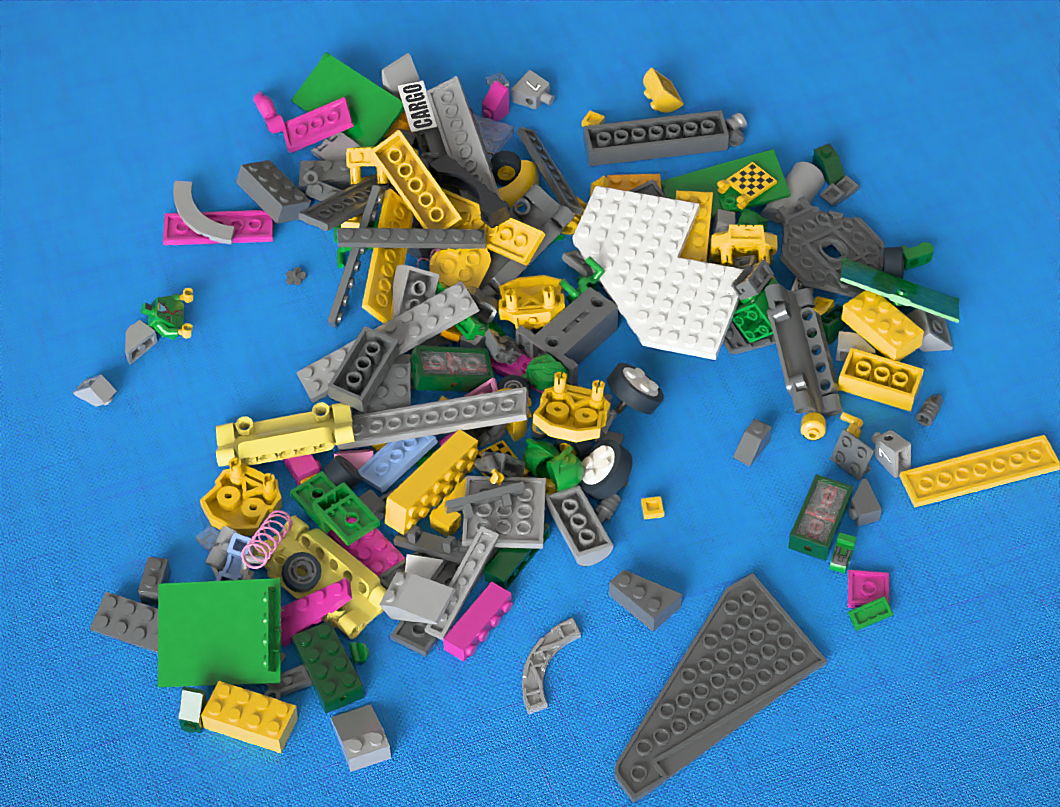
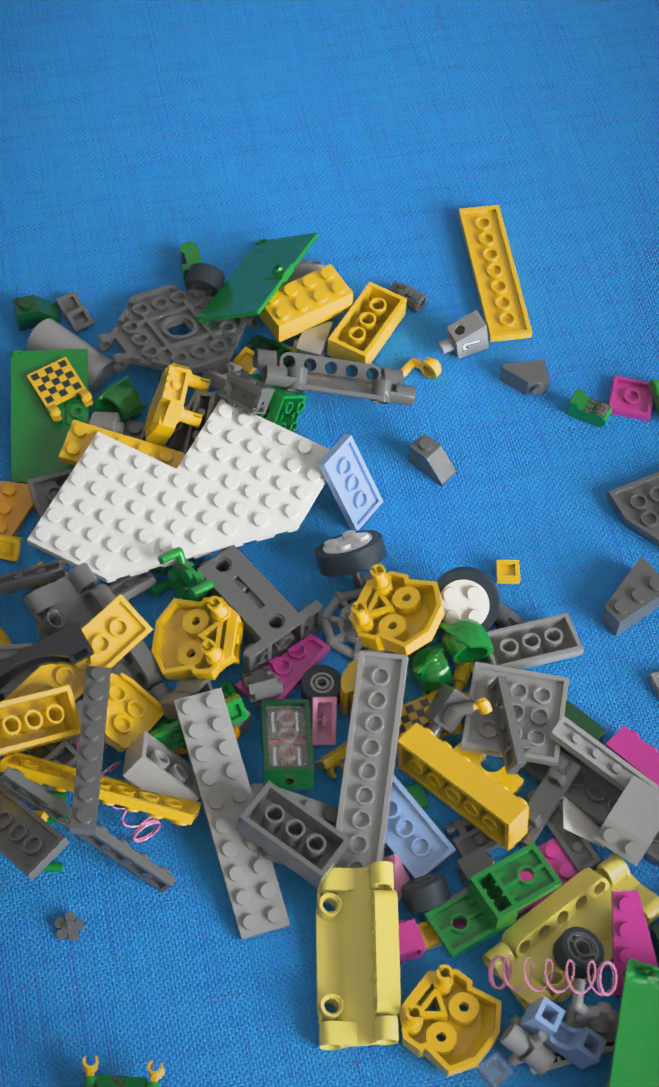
camera: 85 degrees left, 5 degrees up
(541, 371) = (312, 642): green helmet -> none
(698, 375) = (350, 482): none -> light blue plate
(813, 426) = (423, 401): yellow head -> none
(820, 517) = (545, 415): brick -> none
(852, 455) = (467, 371): dark grey hinge -> none

